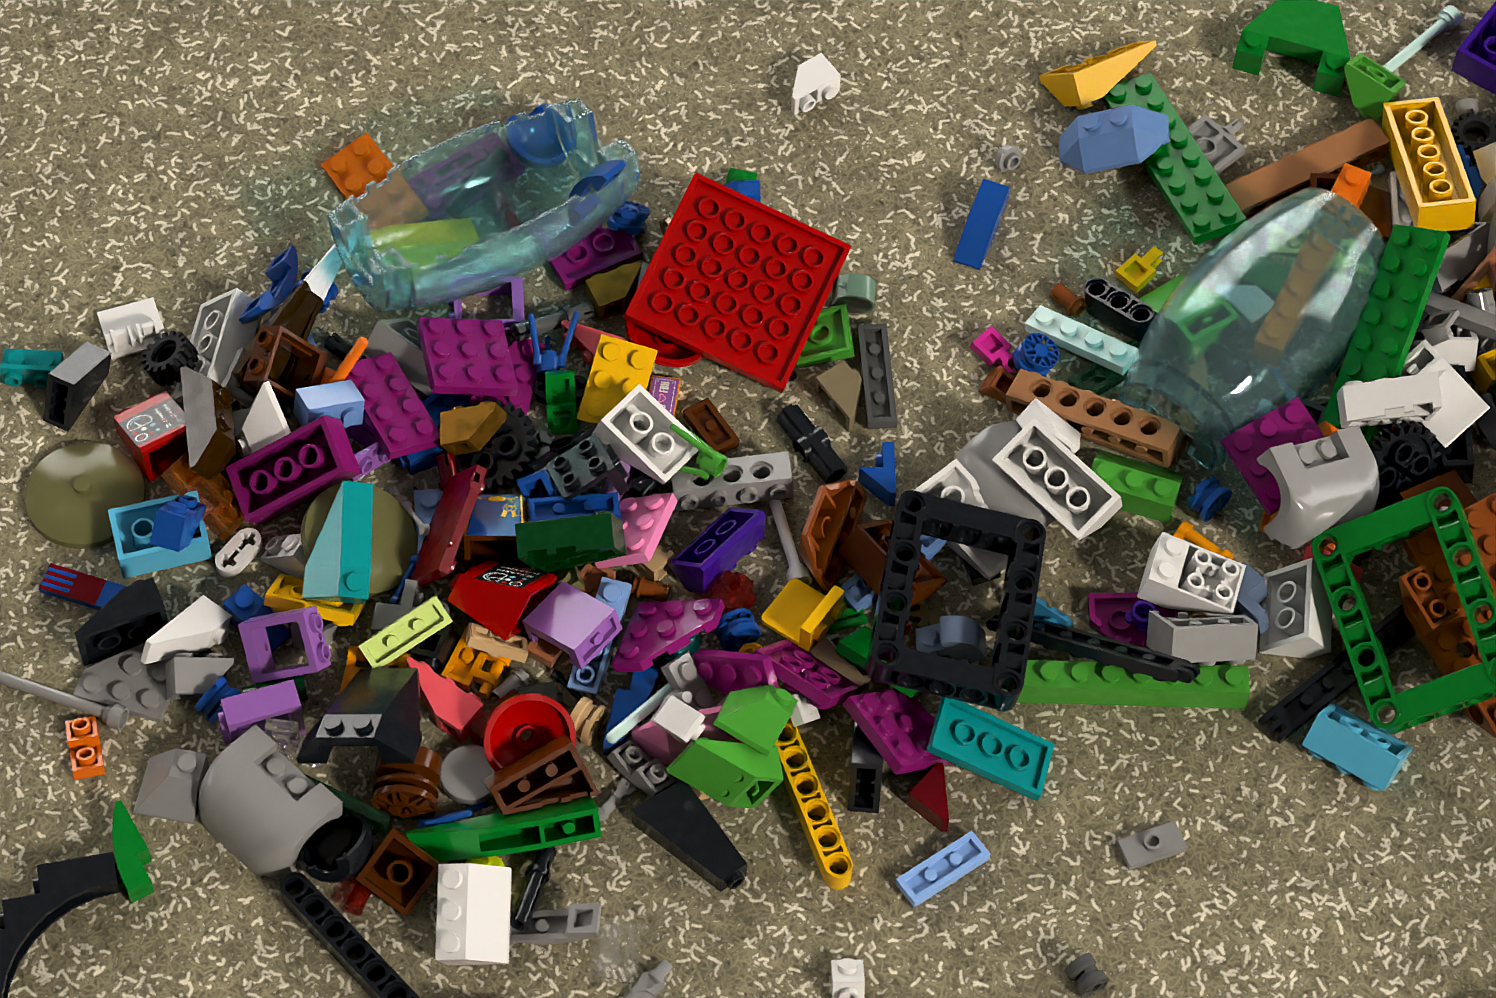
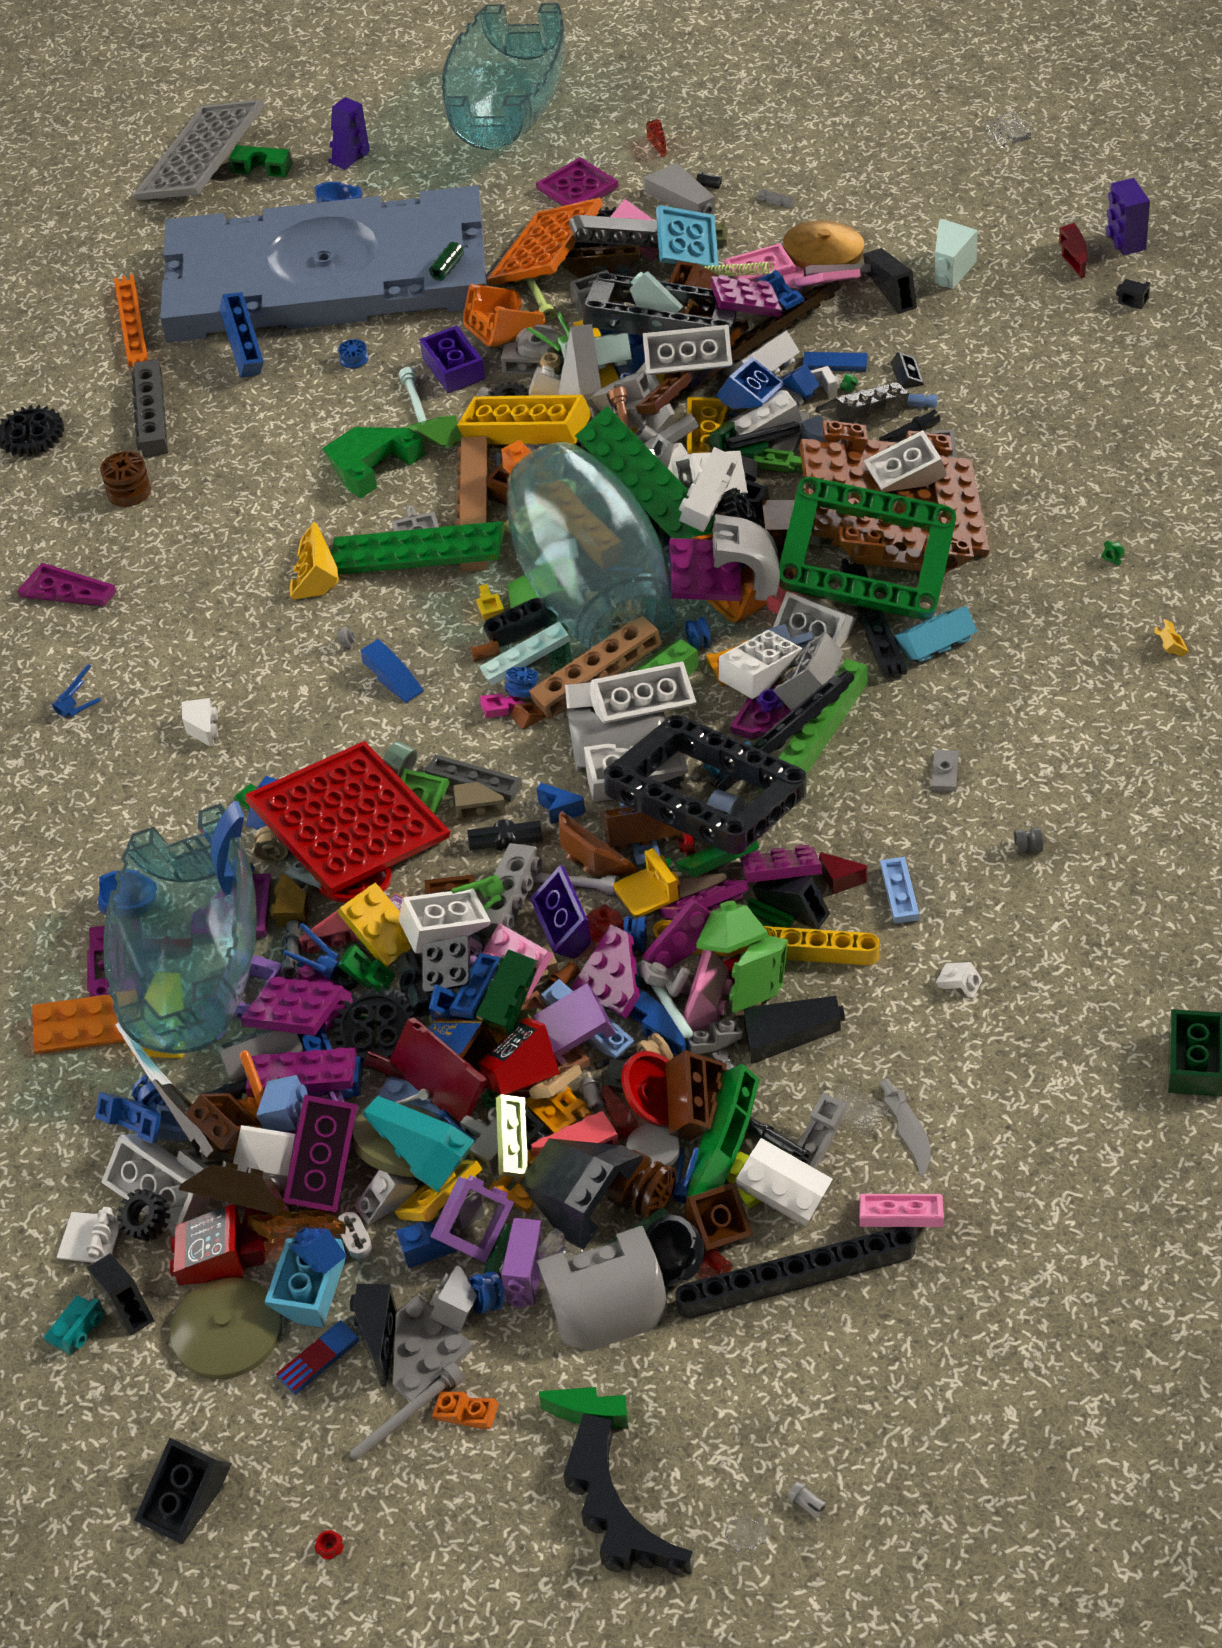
camera: 55 degrees left, 10 degrees down
(172, 785) = (541, 1354): light grey slope -> none
(189, 632) = (412, 1286): white slope -> none
(470, 428) = (359, 1026): pearl gold slope -> none
(679, 719) = (711, 972): white slope -> none
(836, 727) = (770, 914): none -> green tile
(990, 747) = (824, 820): teal plate -> none
(1112, 138) = (379, 572): medium blue wedge -> none

